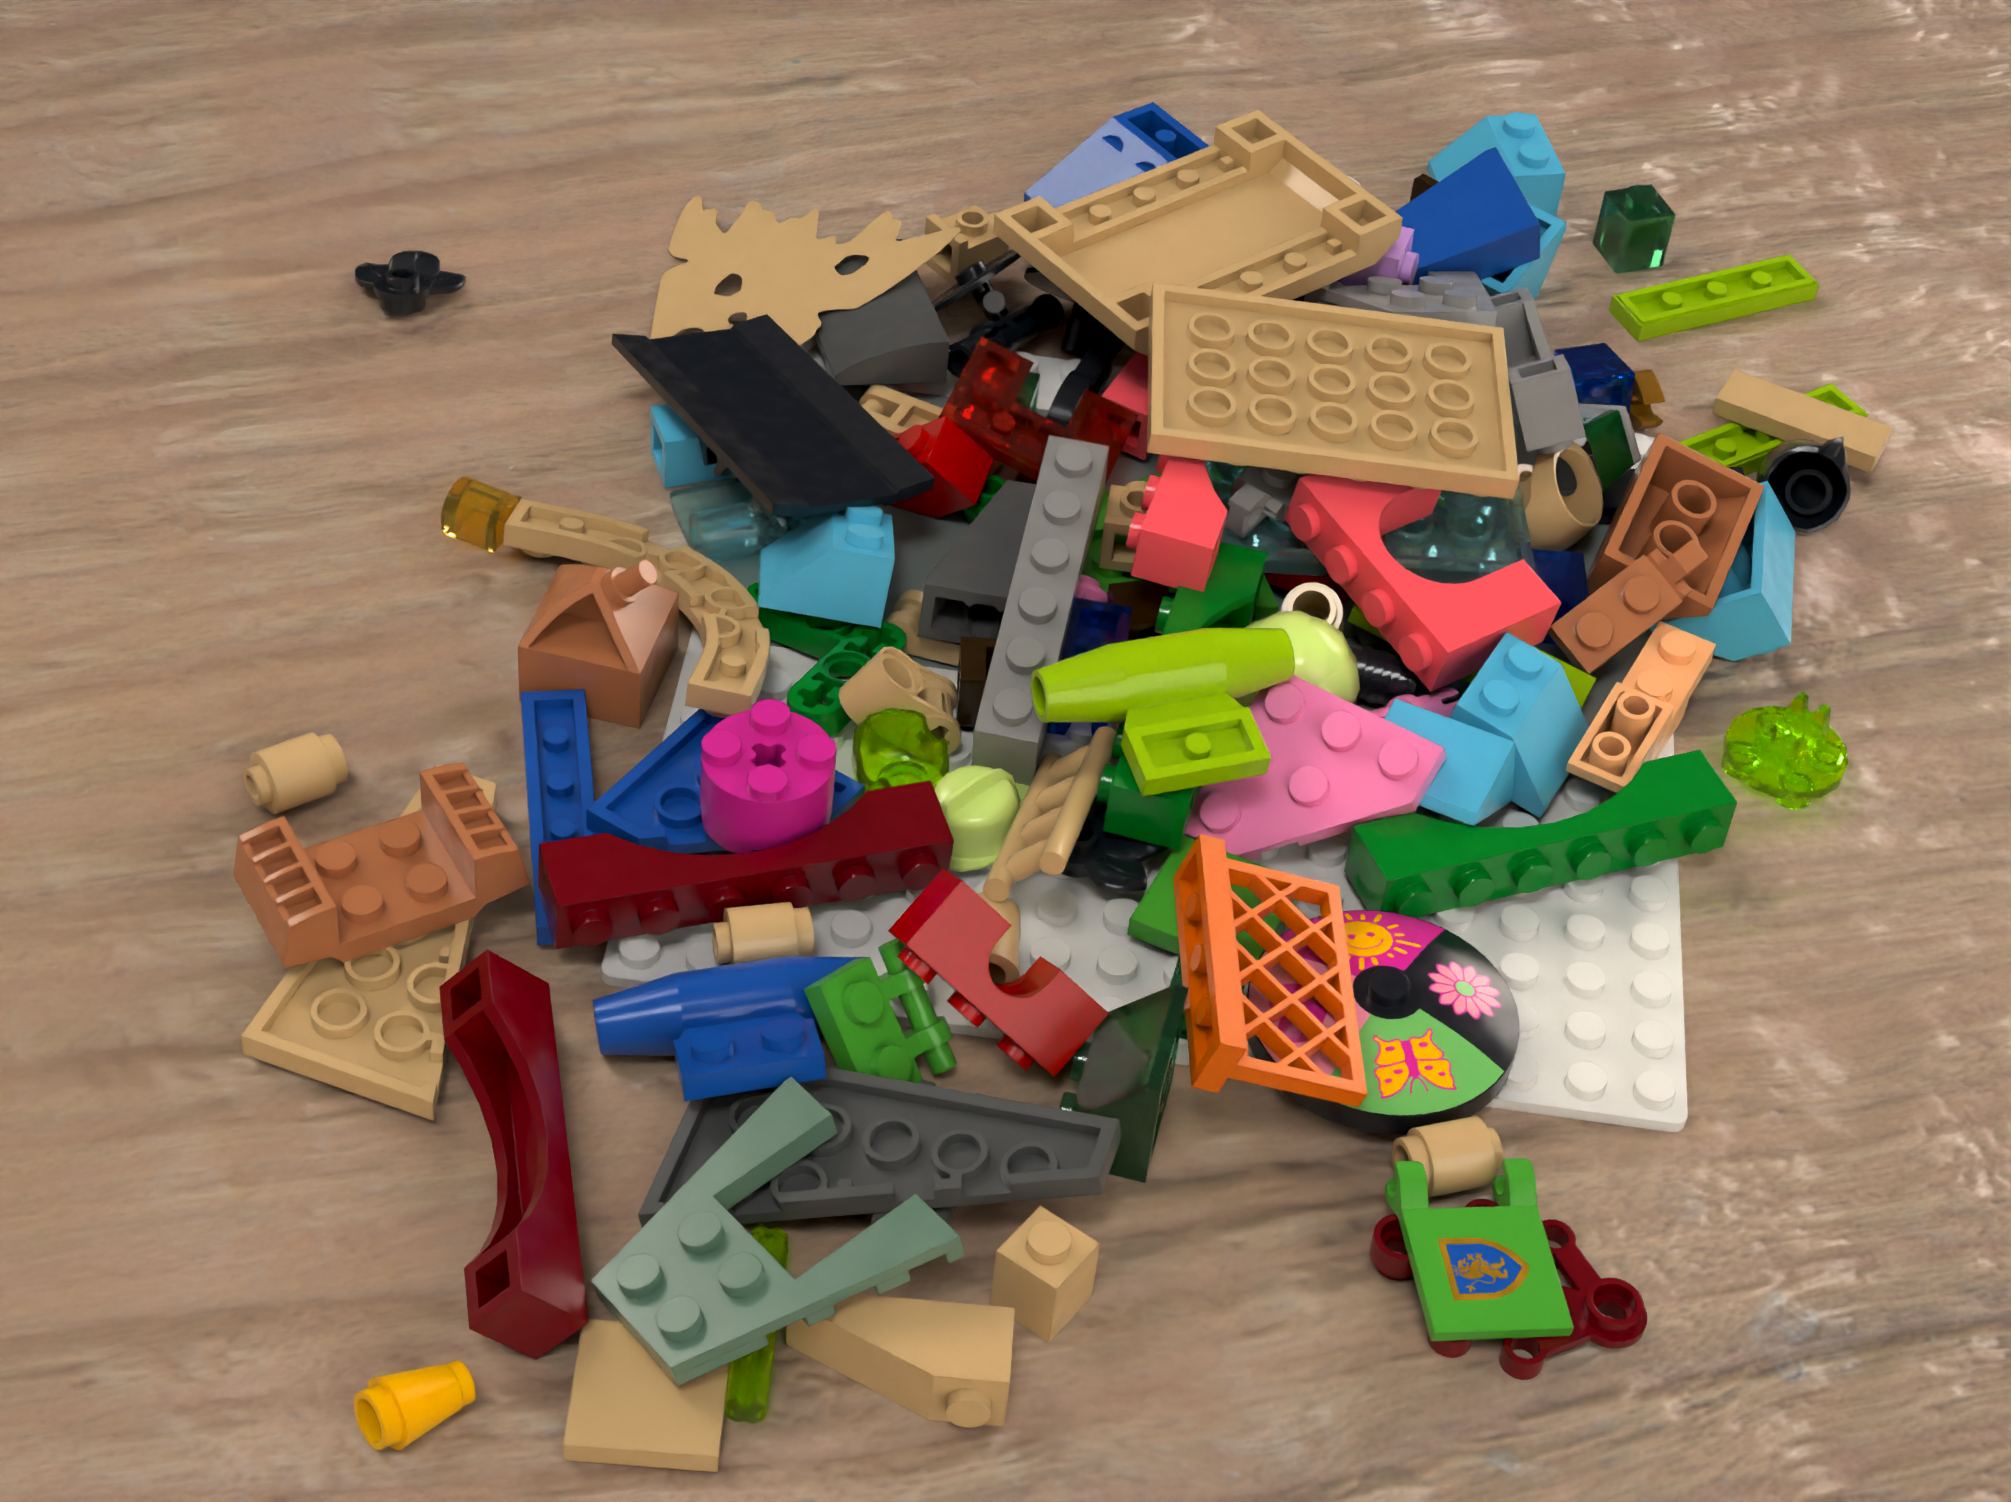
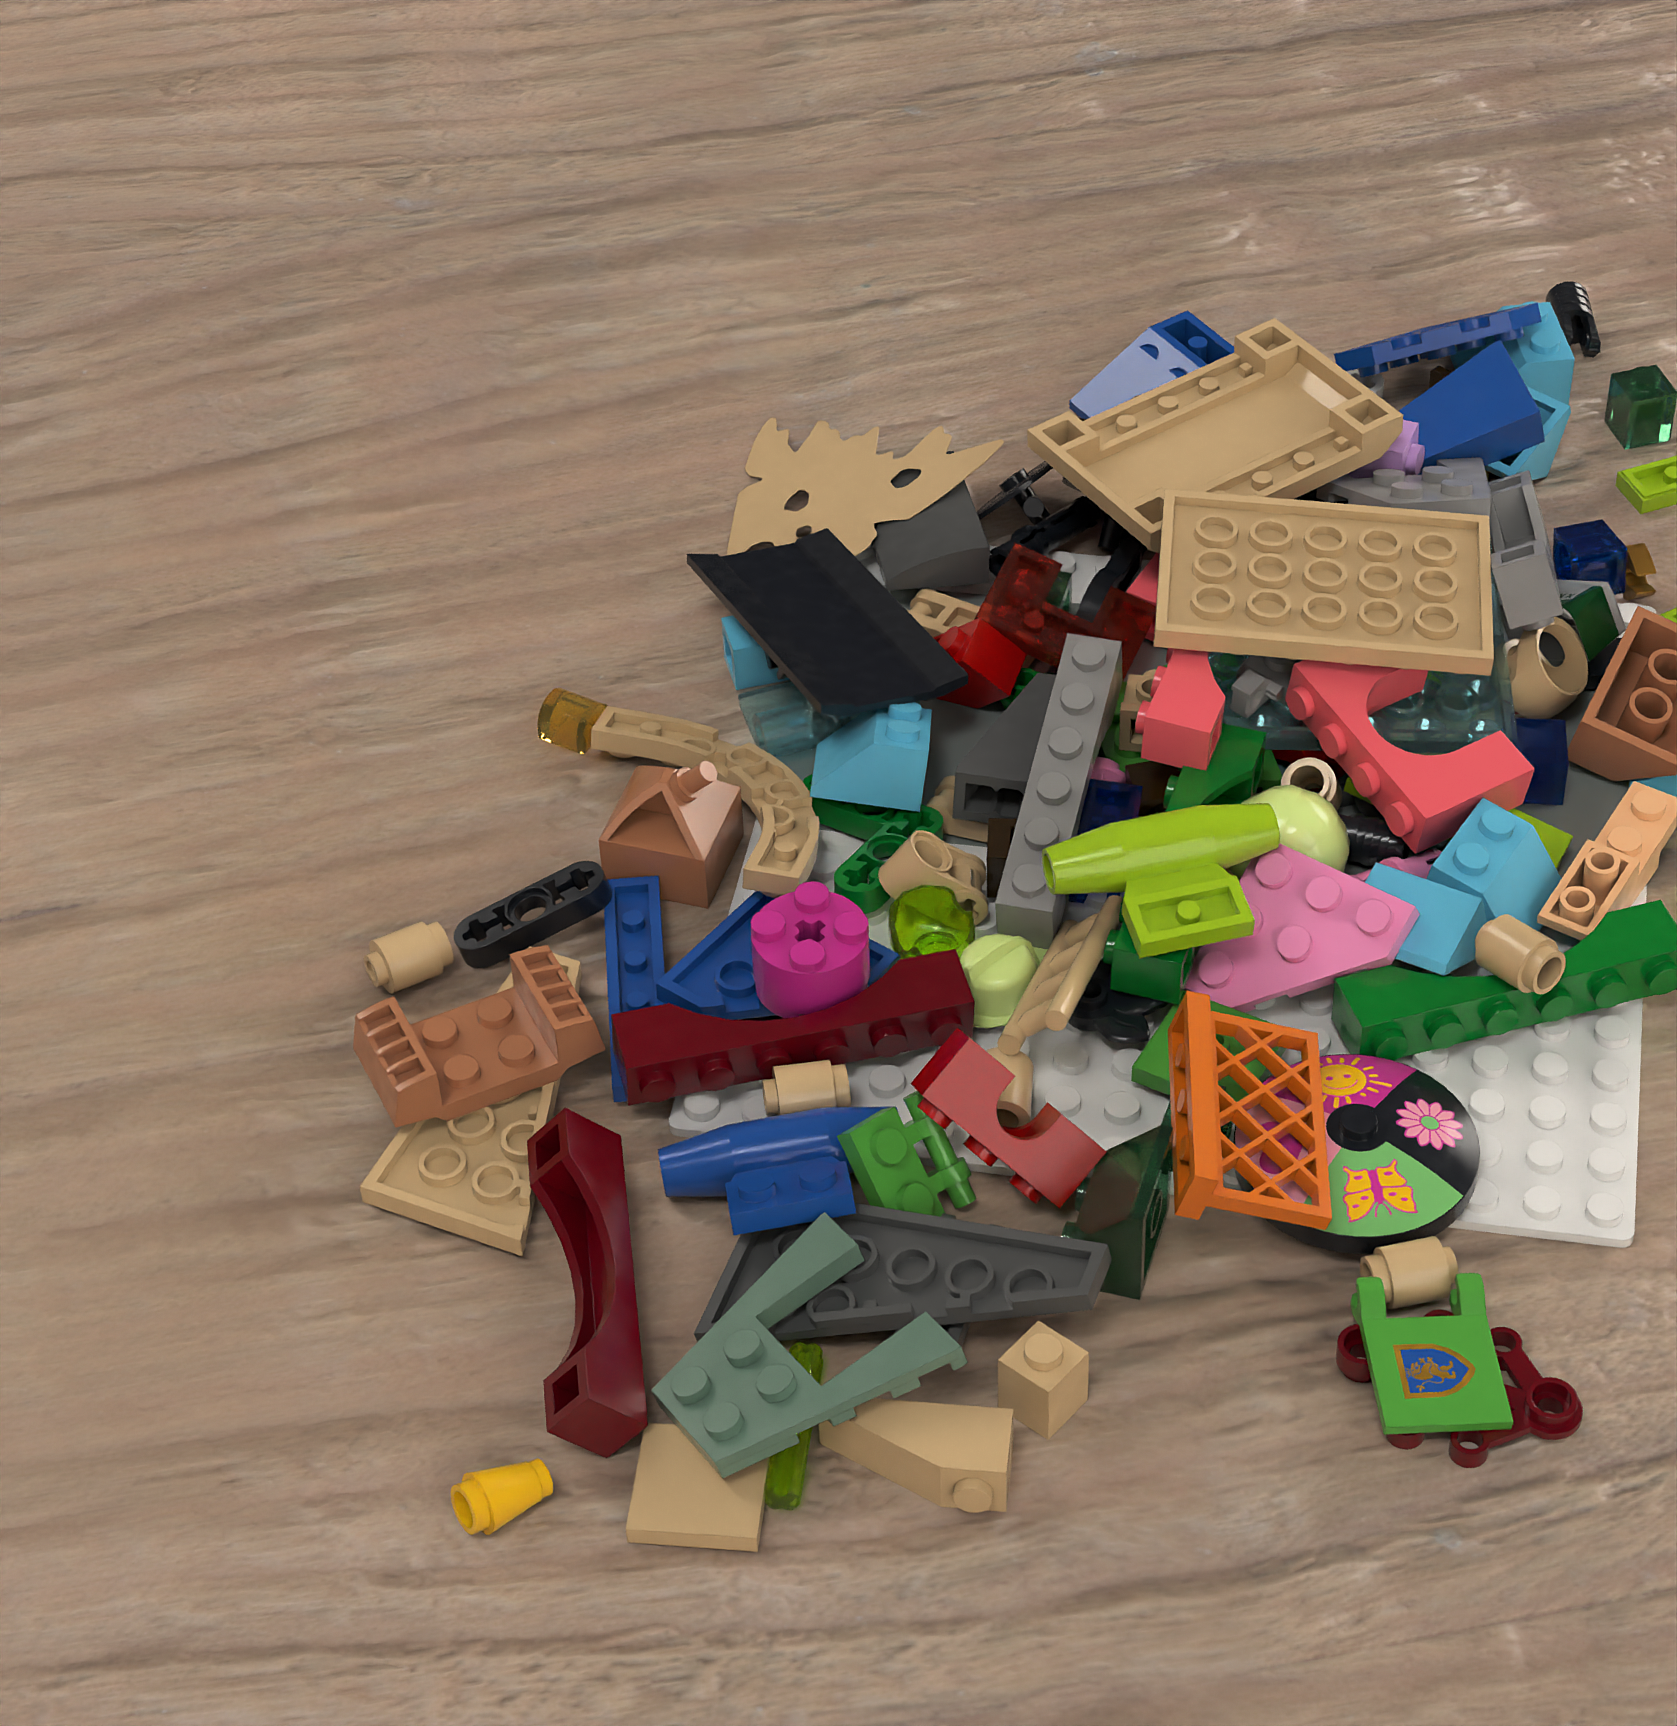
camera: 10 degrees right, 0 degrees up
(407, 281) = (512, 510): black plate -> none
(473, 696) = (562, 885): none -> black beam
(972, 244) = (1013, 453): tan brick -> none
(1428, 146) = (1438, 340): none -> blue plate
(1557, 804) = (1519, 955): none -> tan brick
(1561, 131) = (1575, 316): none -> black hinge
(1626, 606) = (1601, 769): nougat hinge -> none

